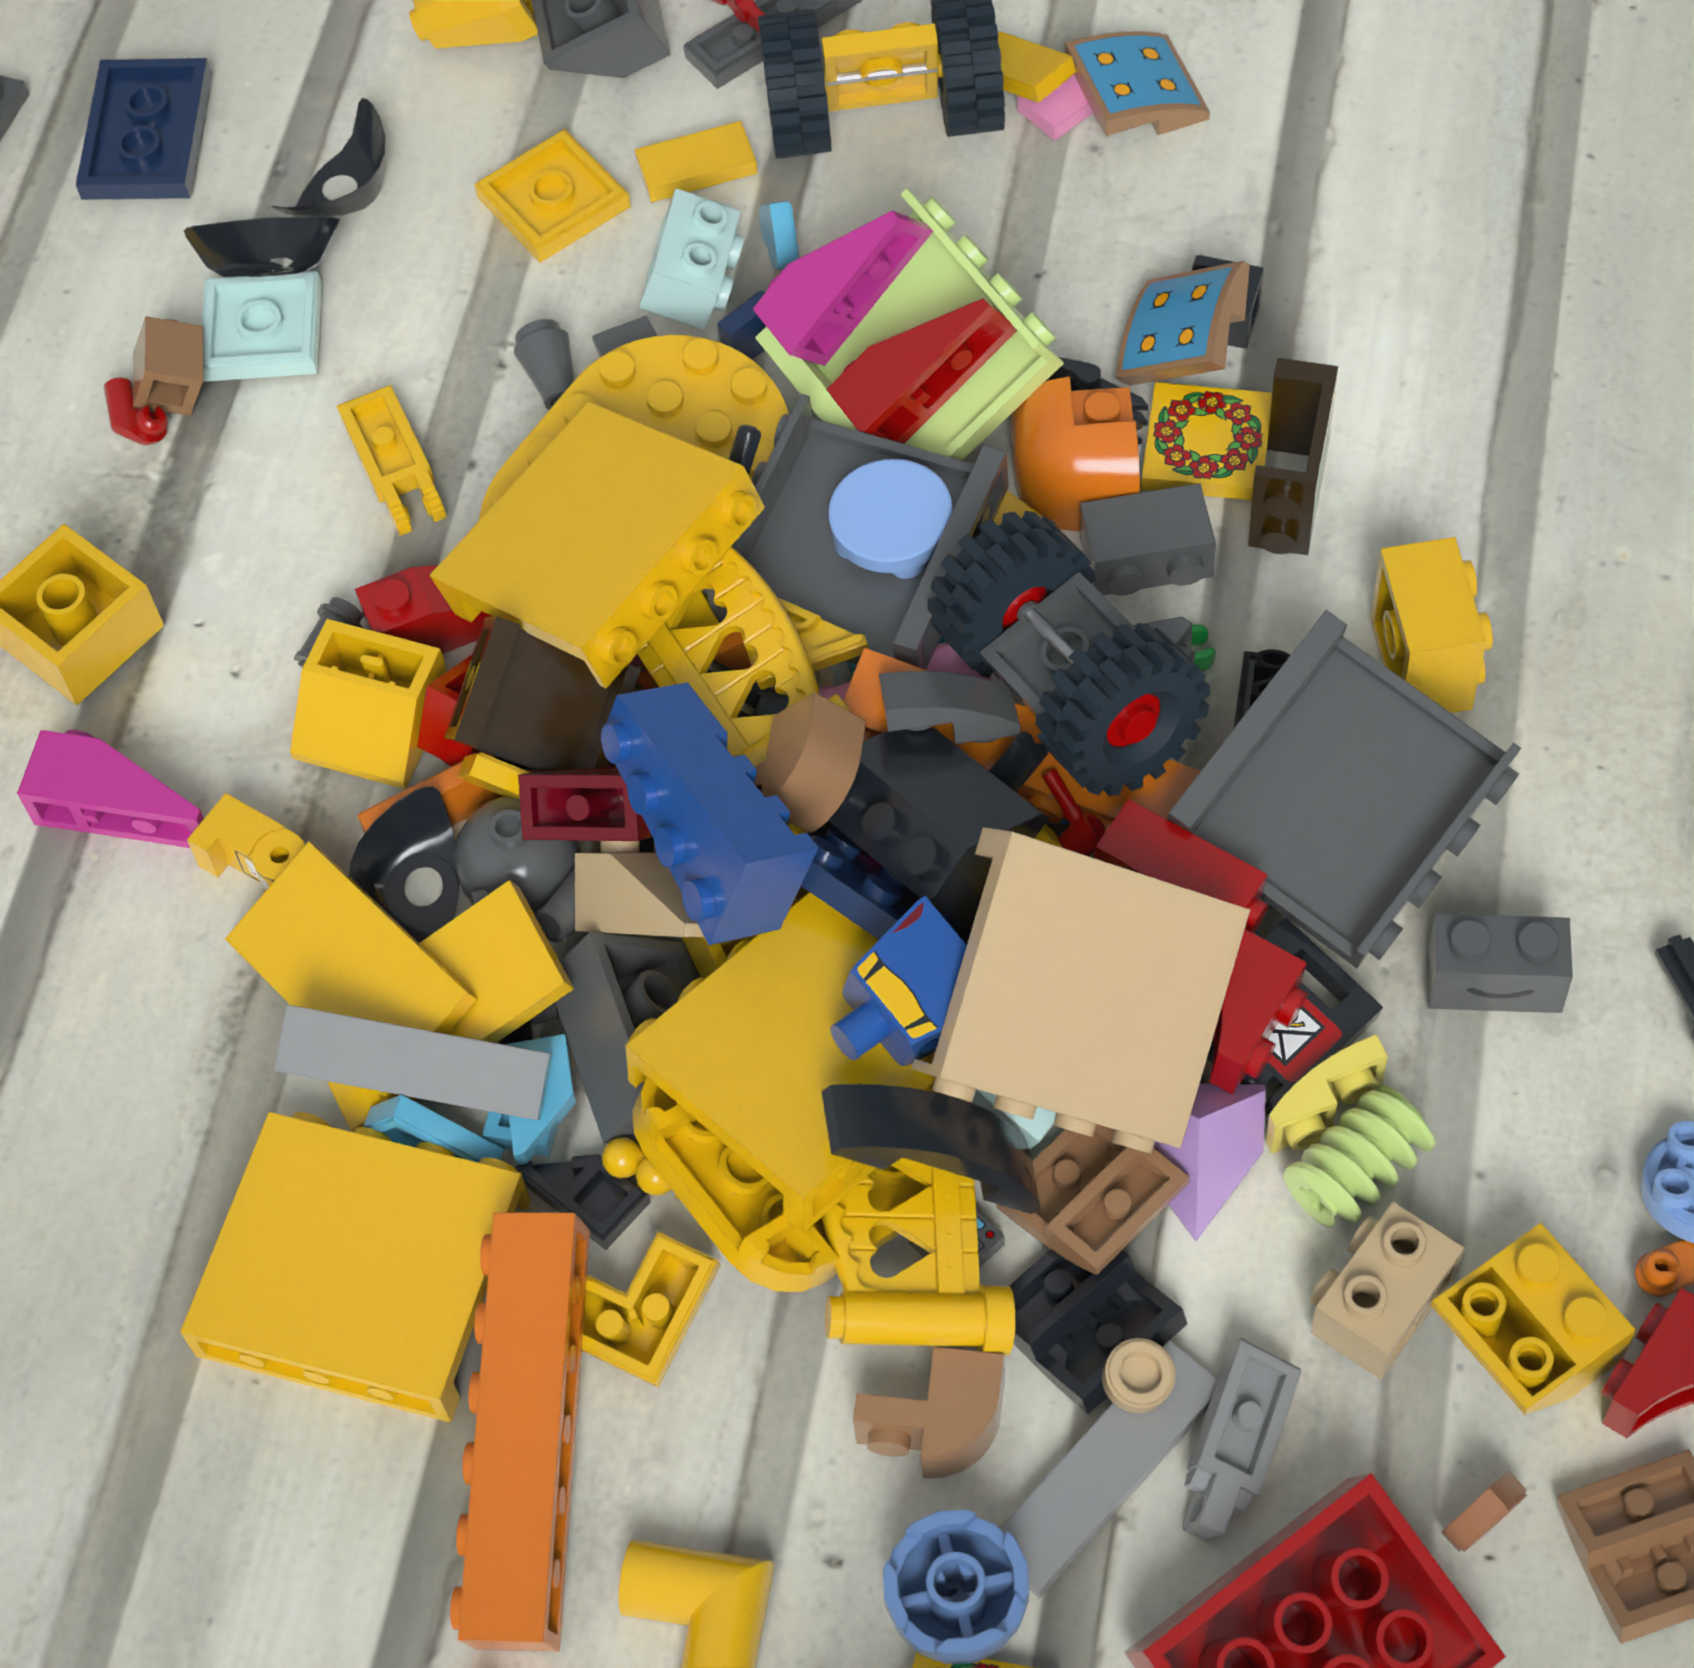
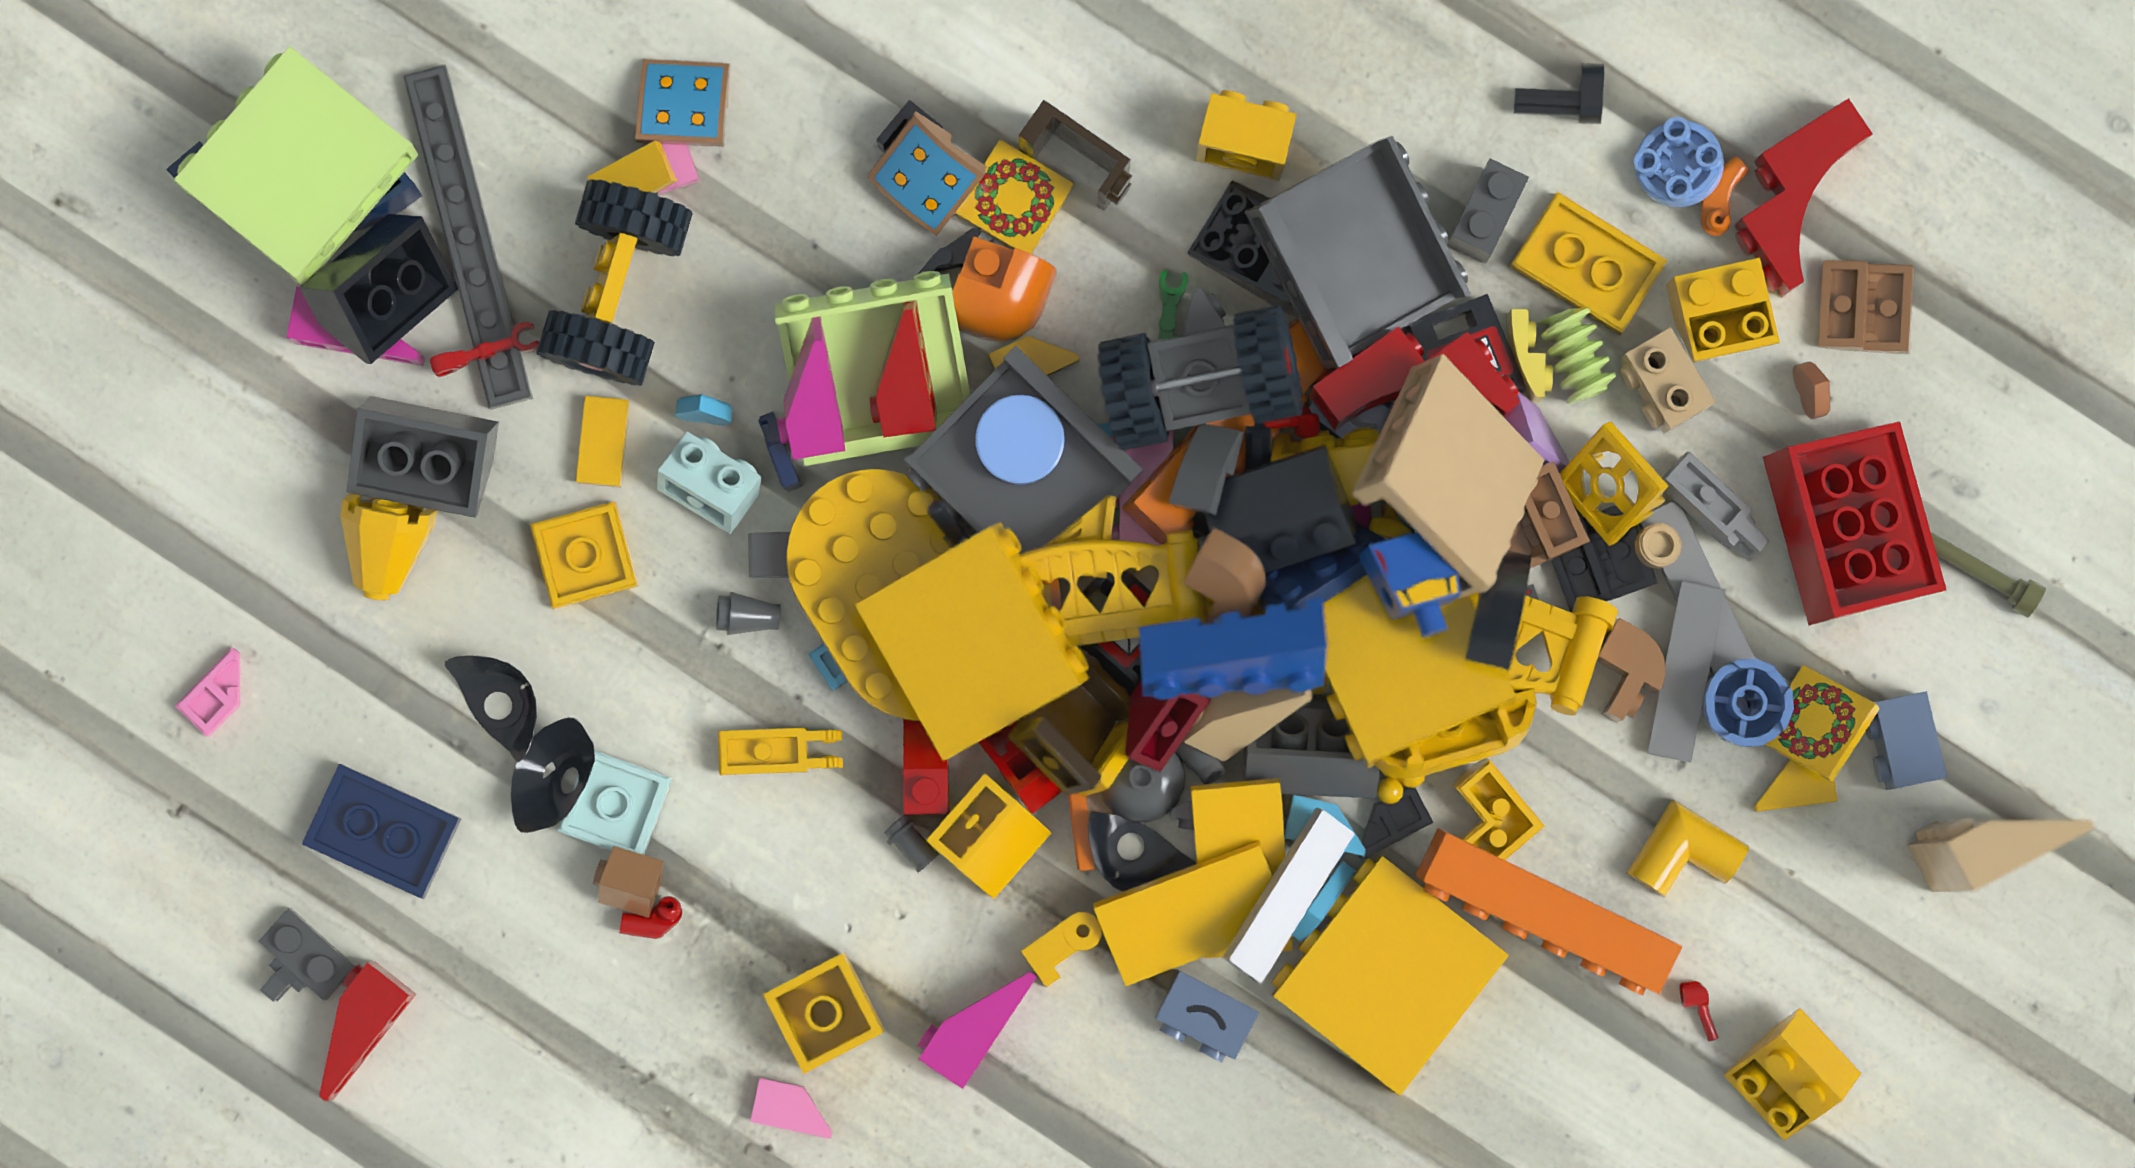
camera: 75 degrees left, 25 degrees up
(218, 1054) = (1206, 1016): none -> sand blue brick
(999, 1486) = (1686, 671): none -> light grey tile
(1148, 539) = (1084, 277): dark grey brick -> none
(1232, 1239) = (1650, 484): none -> yellow piece
(1502, 1134) = (1588, 263): none -> yellow tile

